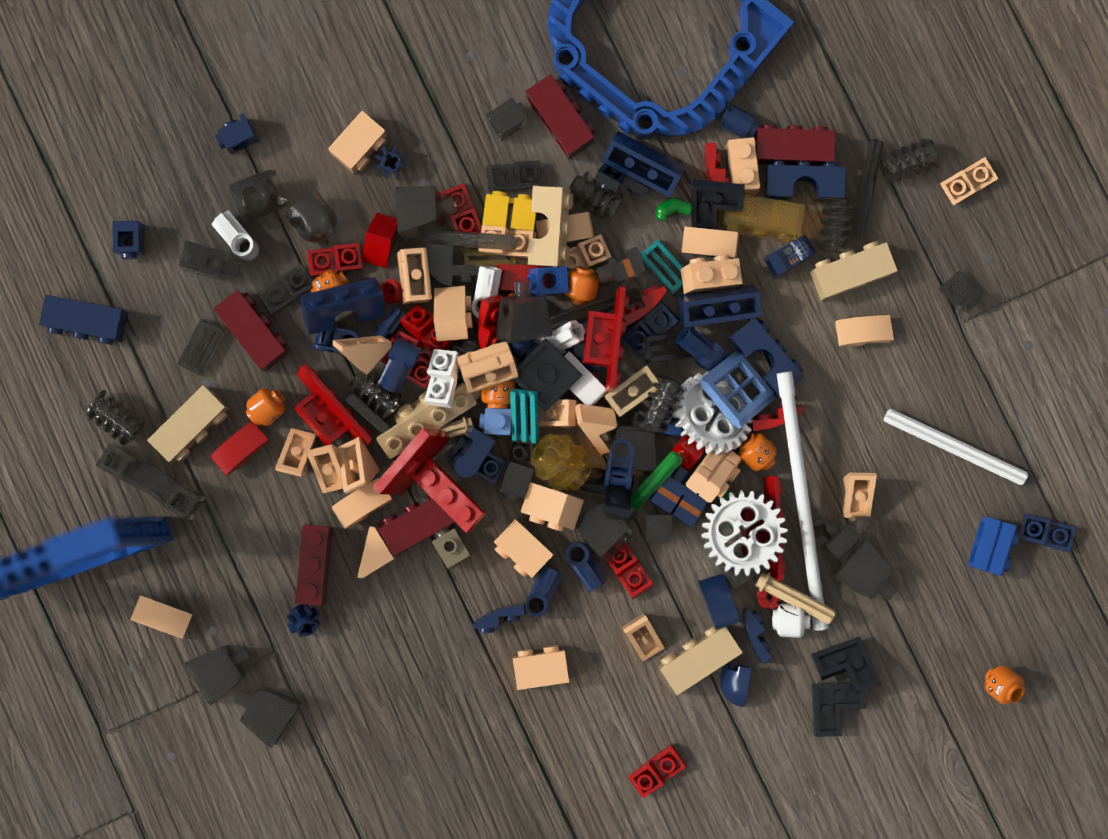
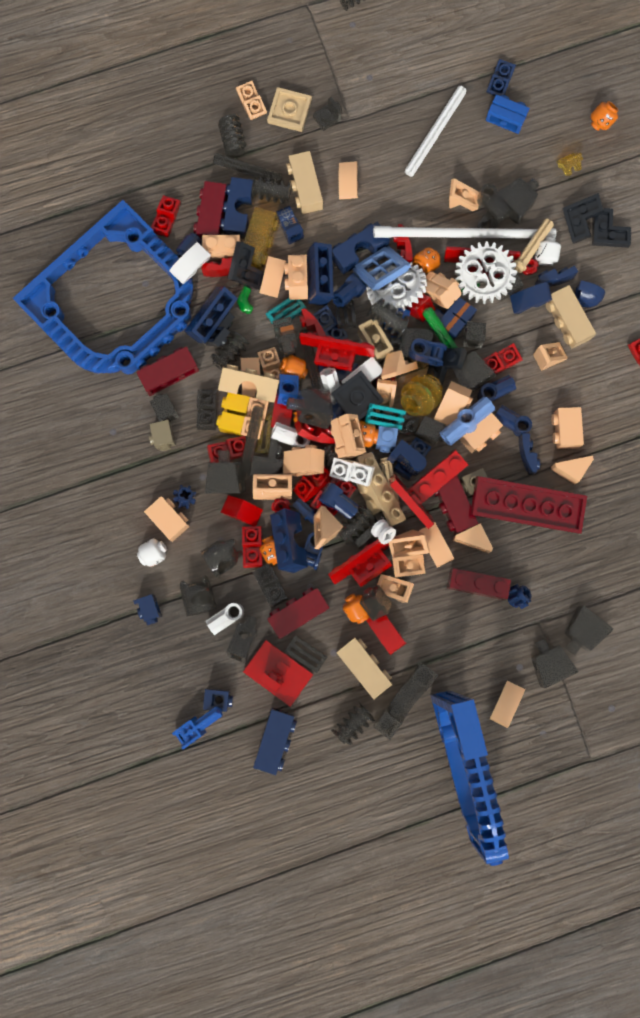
camera: 80 degrees left, 5 degrees down
(88, 215) = (196, 727): none -> blue connector
(170, 312) = (278, 673): none -> red piece
(272, 429) = (375, 602): none -> clear smoke brick
(311, 129) = (152, 552): none -> white head
(366, 429) = (383, 531): none -> white wheel
(425, 621) = (528, 505): none -> dark red plate
(469, 121) = (162, 435): none -> dark tan brick
(484, 680) = (572, 469): none -> light nougat slope
(516, 514) = (459, 427): none -> medium blue piece
(709, 125) = (189, 263): none -> white slope
(782, 85) = (166, 216): none -> red slope
(931, 641) = (570, 160): none -> clear yellow tile
(961, 236) = (289, 109): none -> tan plate

